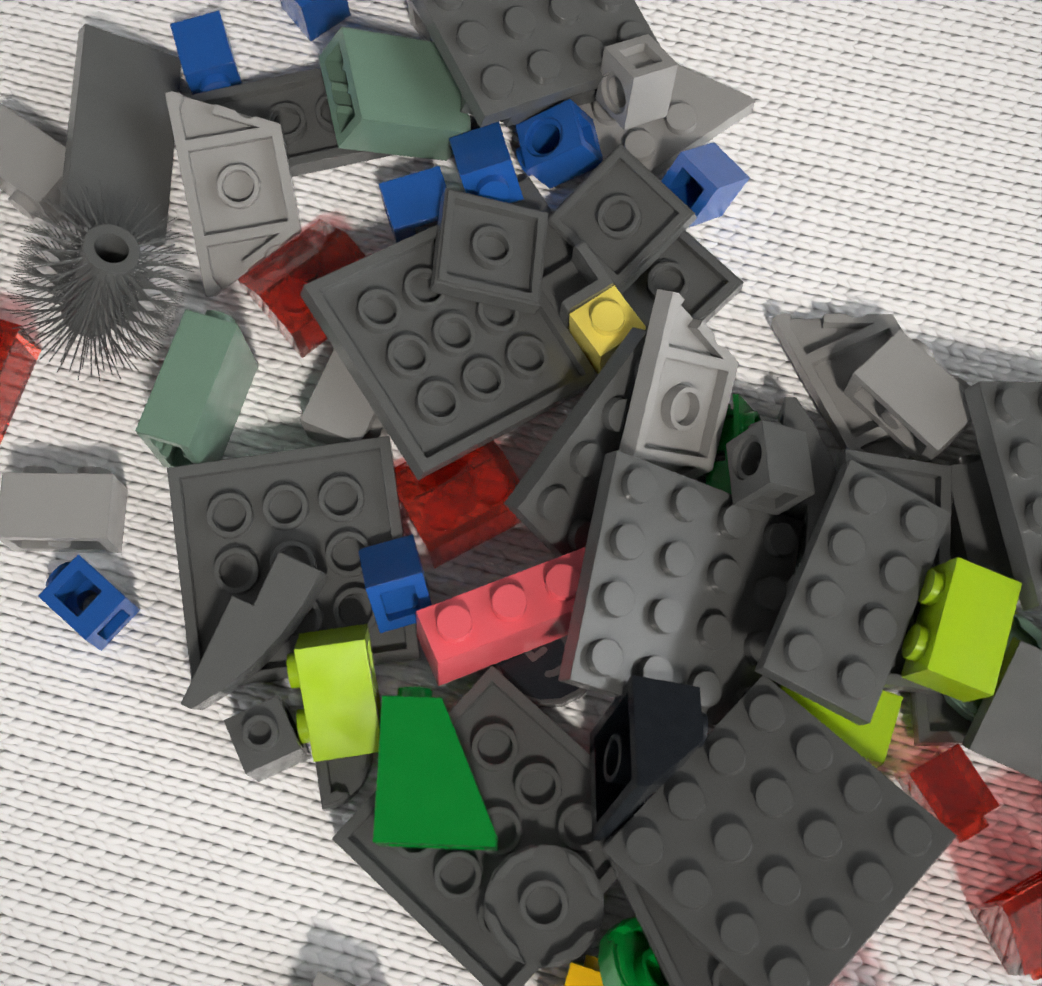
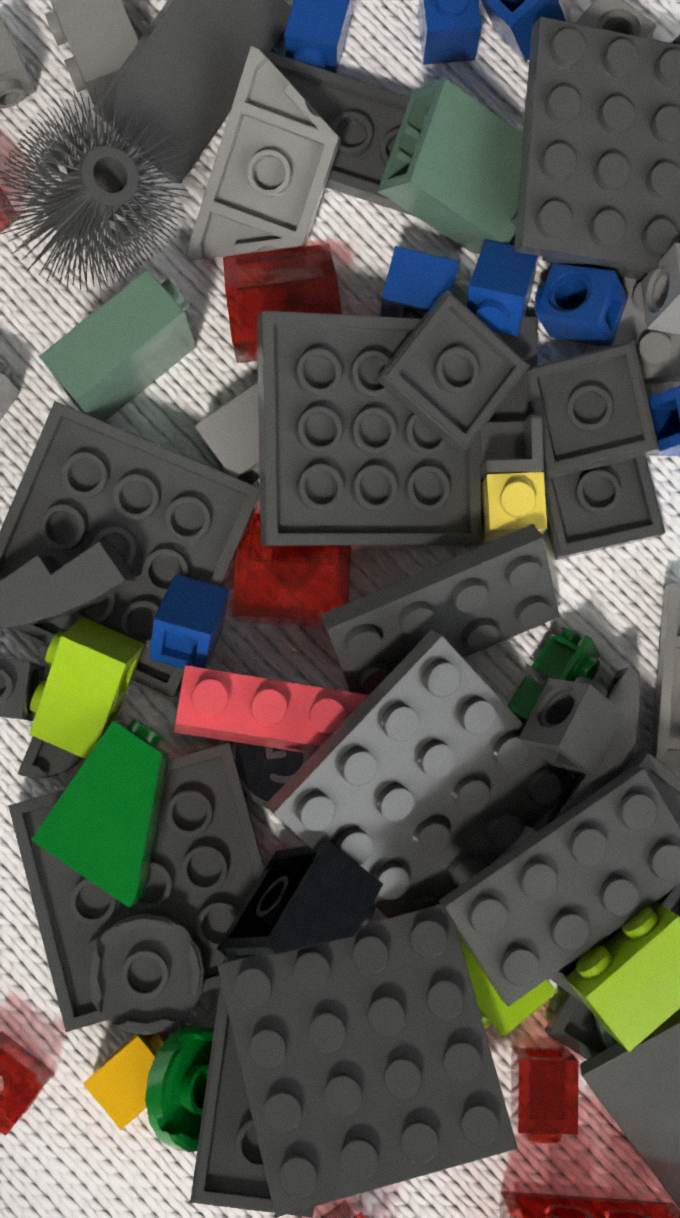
camera: 25 degrees right, 10 degrees up
(679, 392) = (533, 610): light grey wing -> none

